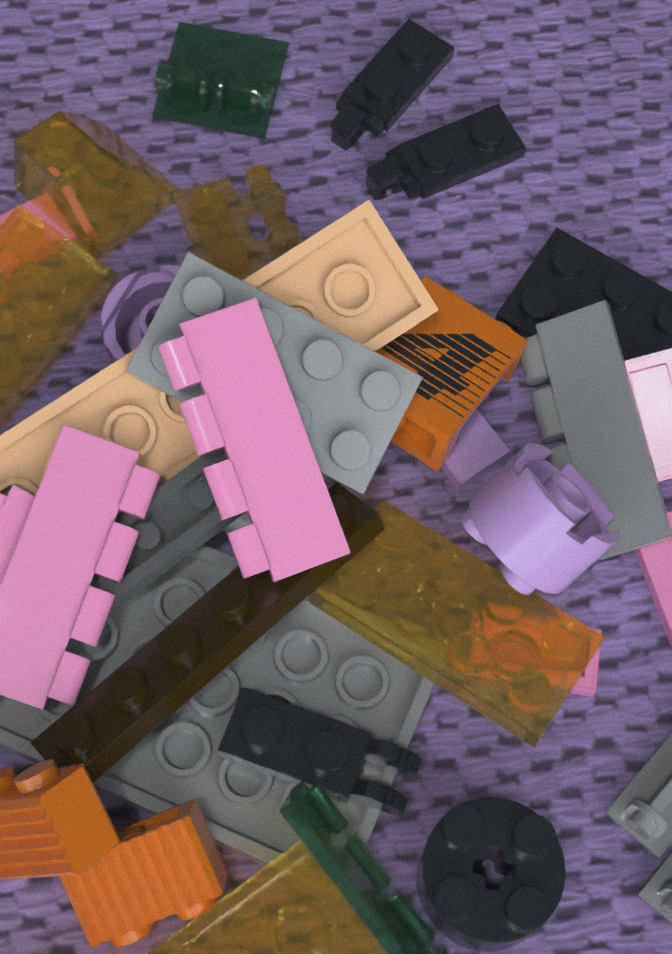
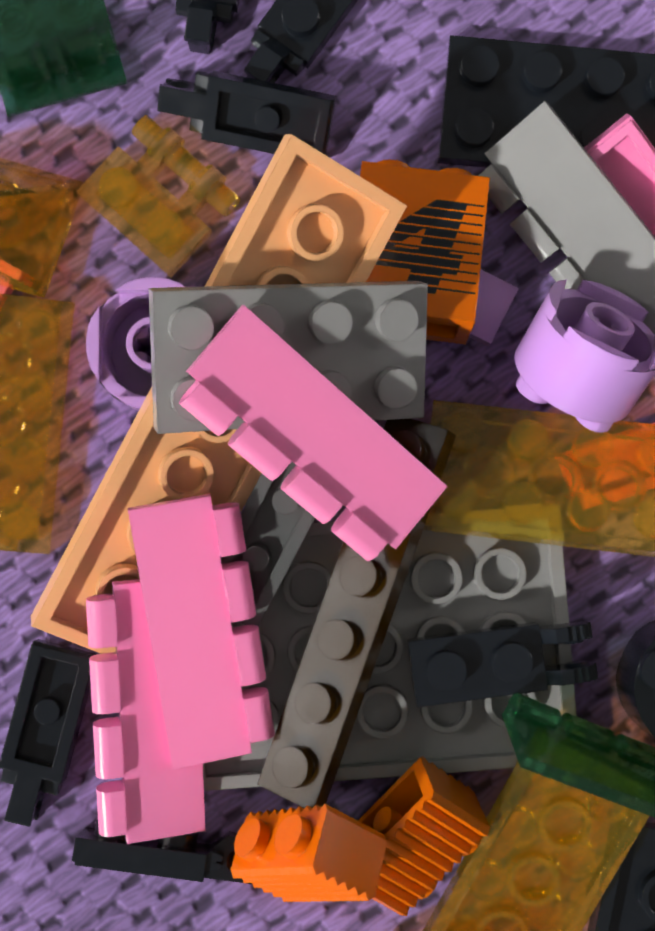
camera: 25 degrees left, 20 degrees up
(335, 188) = (249, 110): none -> black hinge

